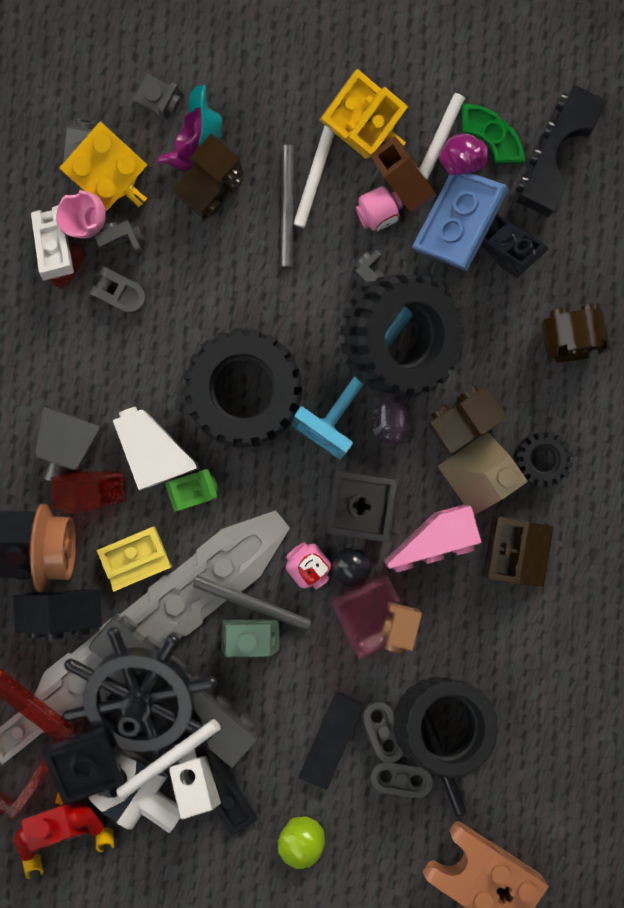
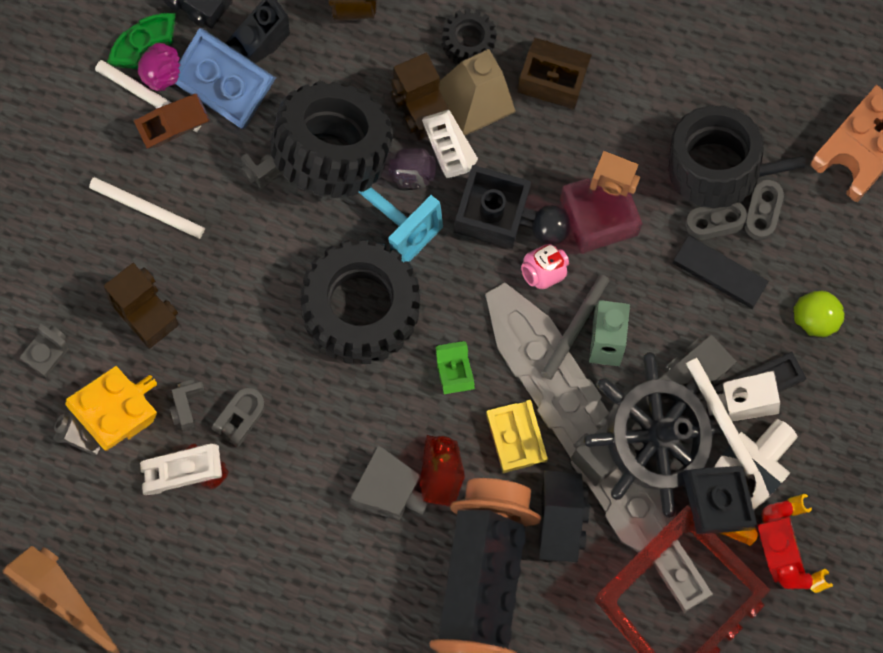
camera: 90 degrees left, 15 degrees down
(81, 215) = (159, 432): bright pink hair -> none
(150, 449) = (408, 403): white slope -> none
(197, 127) = (90, 313): hair -> none
(287, 180) = (180, 241): flat silver bar -> none
(364, 114) = (103, 151): yellow plate -> none
(378, 208) = (198, 153): bright pink head -> none
(418, 455) = (451, 162): none -> white slope
(441, 533) = (531, 141): bright pink slope -> none

